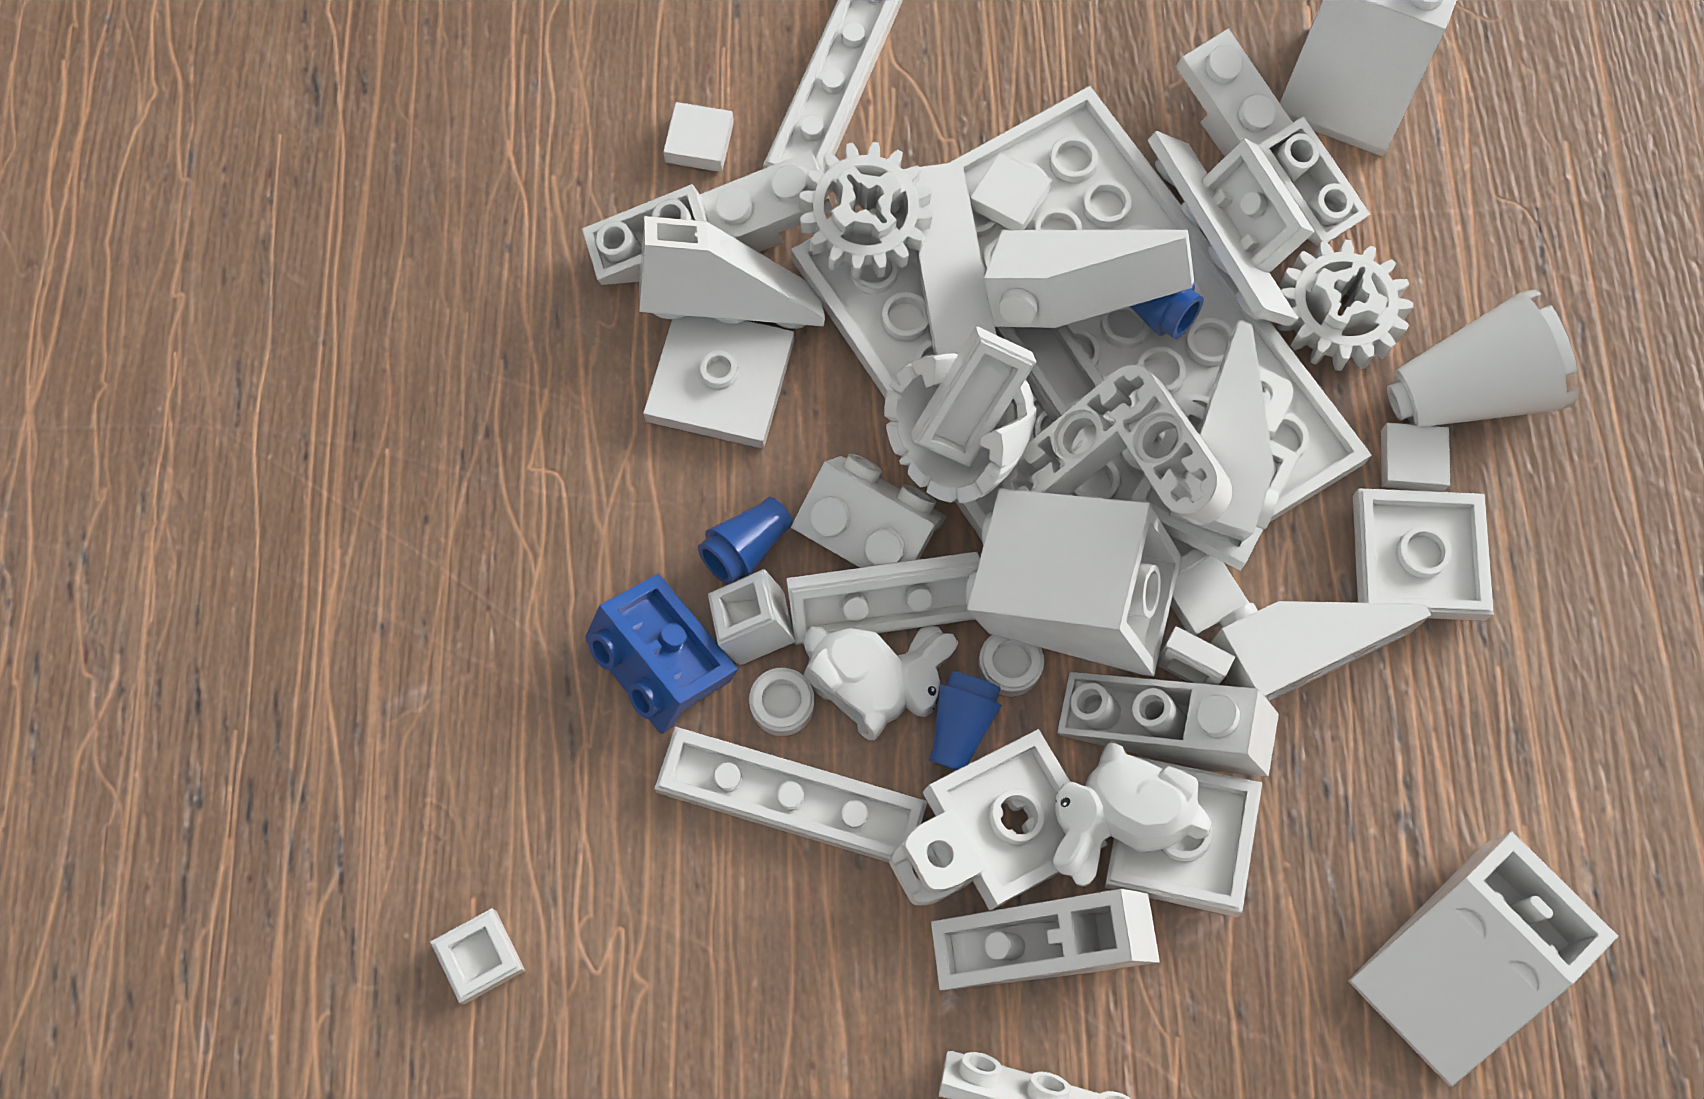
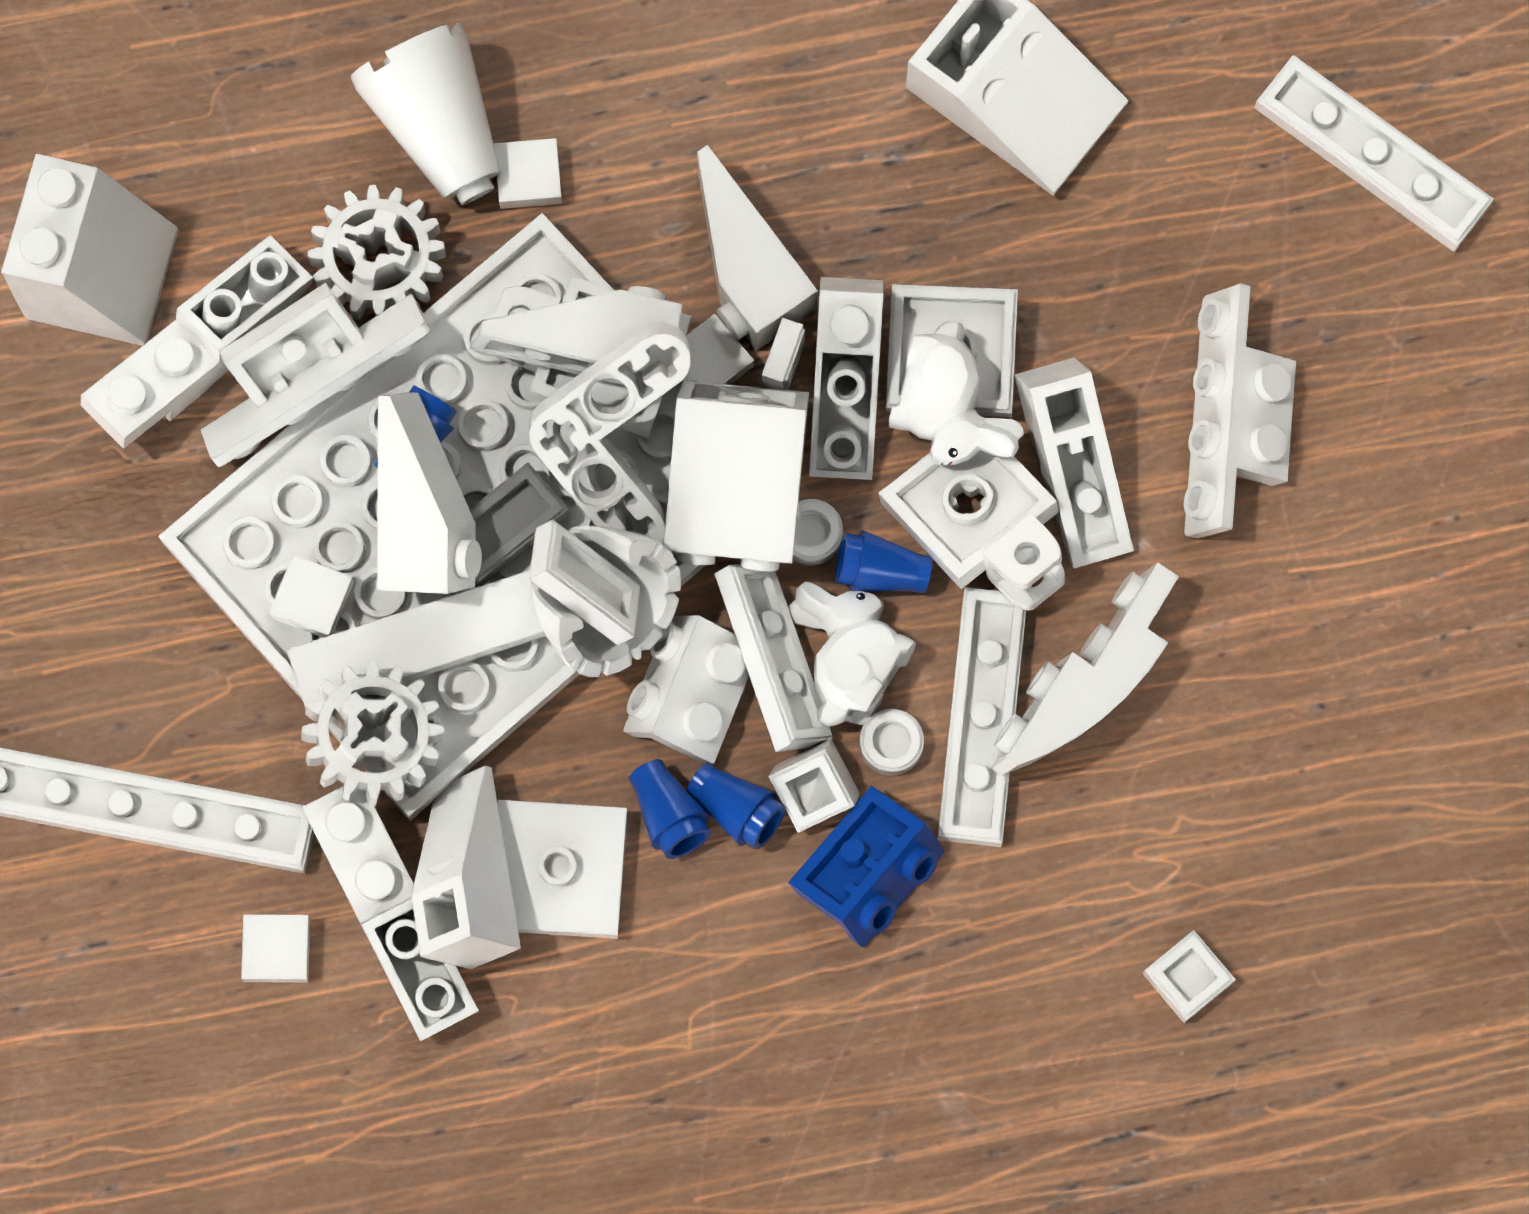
camera: 100 degrees left, 5 degrees up
(751, 477) = (670, 813): none -> blue cone
(781, 886) = (1082, 692): none -> white slope
(1424, 551) = (633, 159): white plate -> none

